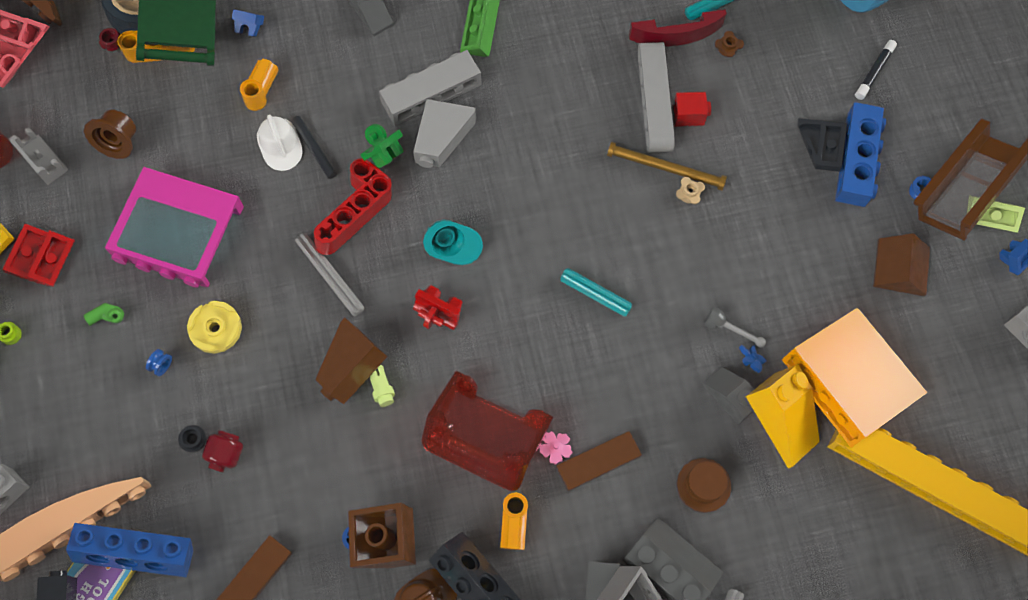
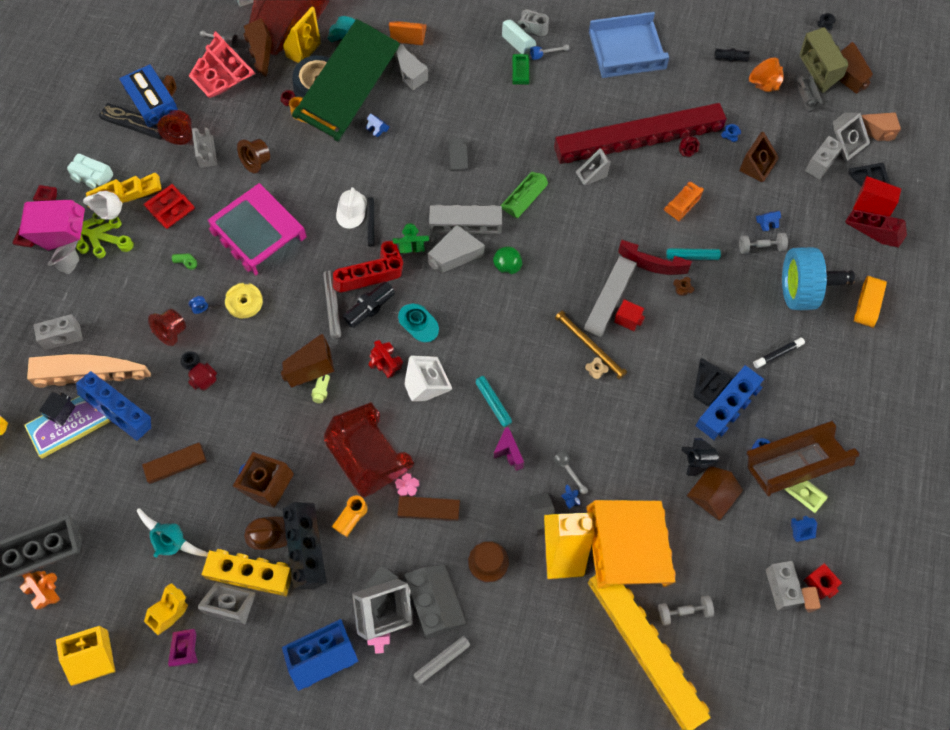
camera: 30 degrees right, 5 degrees down
(137, 411) = (167, 326): none -> clear red piece
(258, 84) = (358, 167): light orange piece -> none
(376, 251) = (368, 304): none -> black piece
(502, 307) = (425, 378): none -> white slope
(509, 112) = (507, 260): none -> green hair
(647, 335) = (508, 446): none -> magenta slope
(866, 234) = (700, 456): none -> black brick
(971, 400) = (706, 606): none -> light grey wheel

